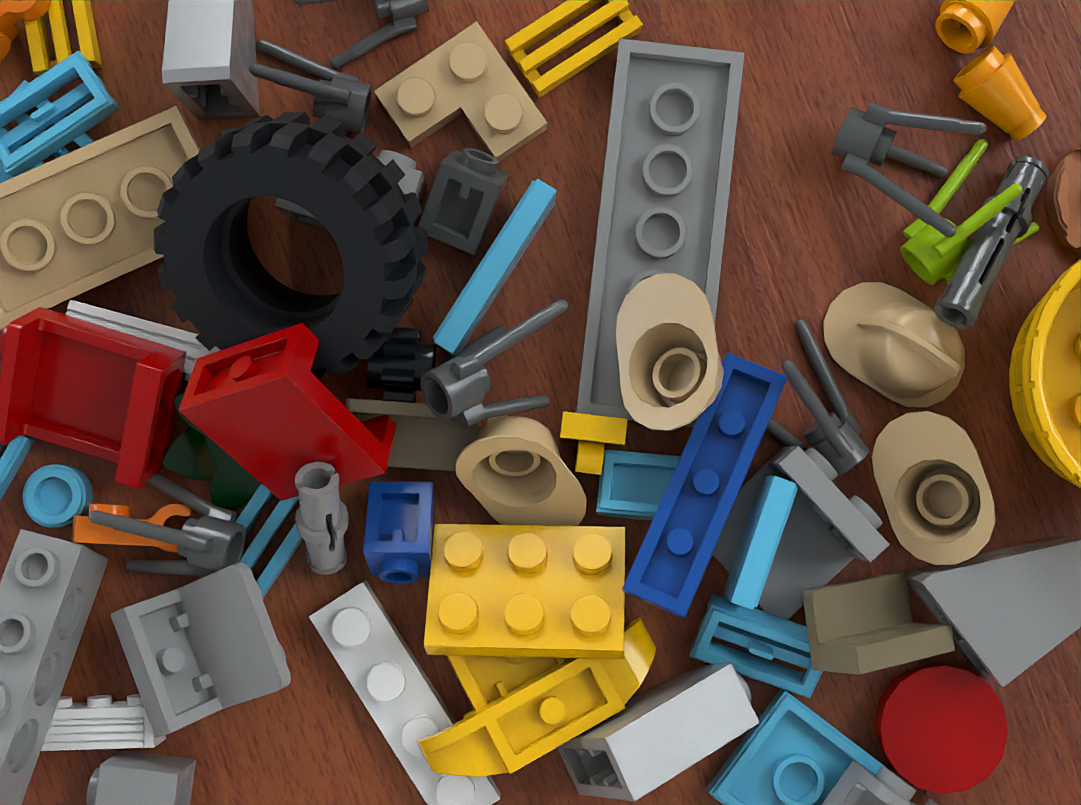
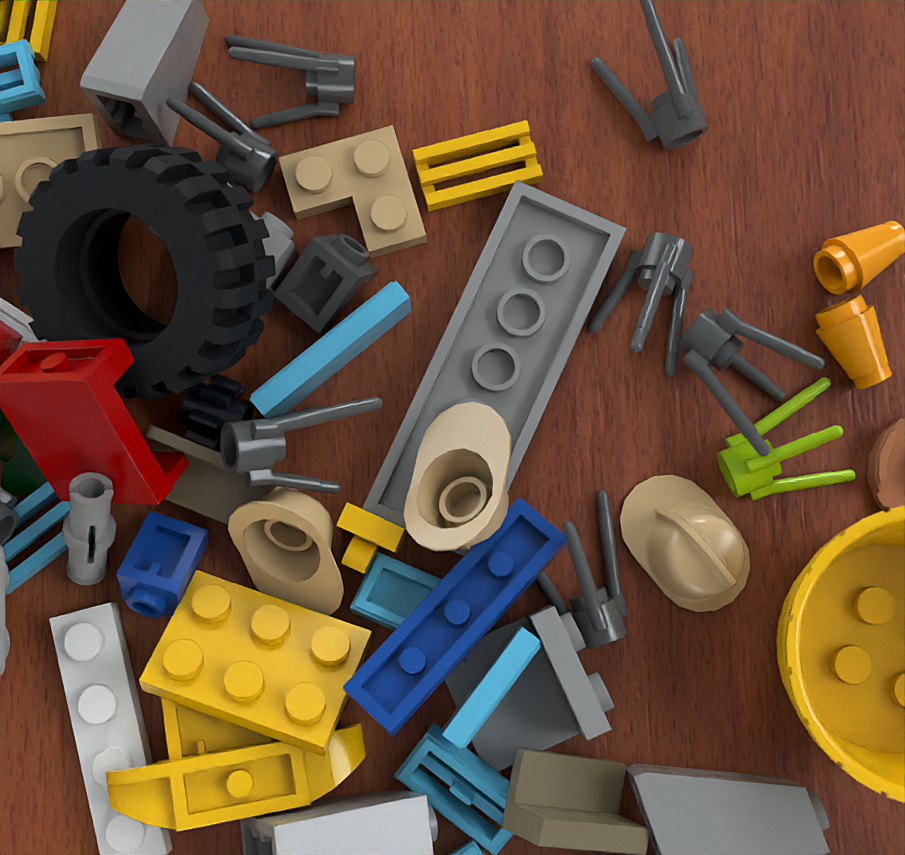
camera: 20 degrees right, 5 degrees down
(792, 86) = (660, 269): none -> dark grey plant
(933, 488) = (674, 690): tan piece -> none
(991, 245) = (801, 478): dark grey pin -> none

